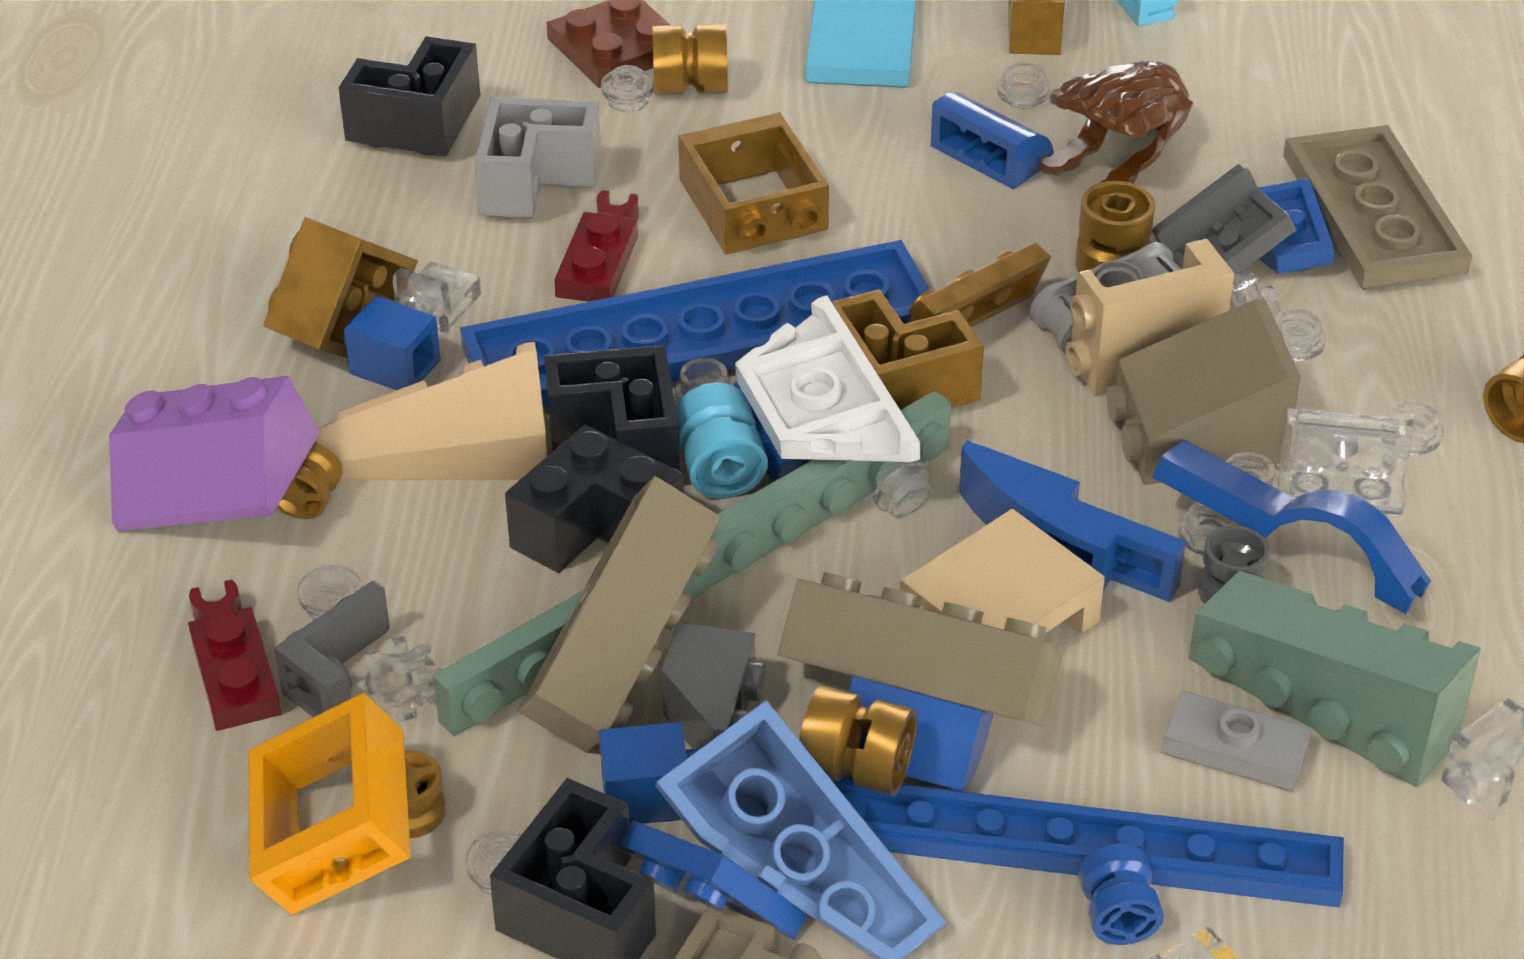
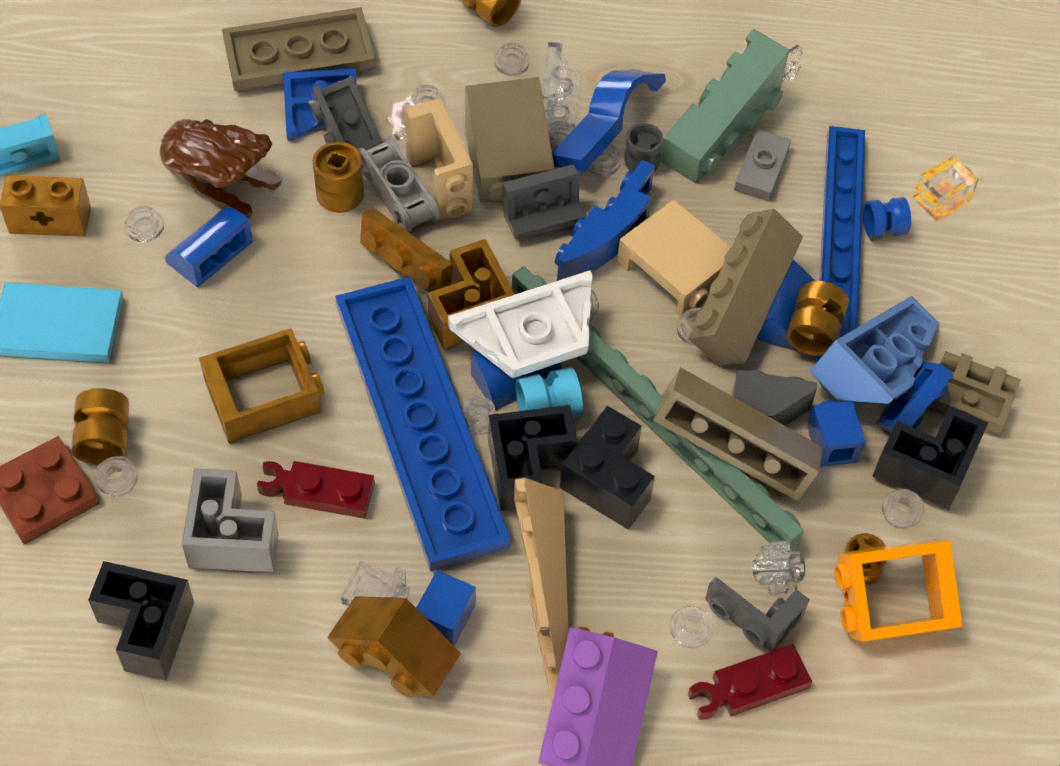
camera: 95 degrees left, 15 degrees up
(1093, 440) = (542, 202): none -> dark grey bracket

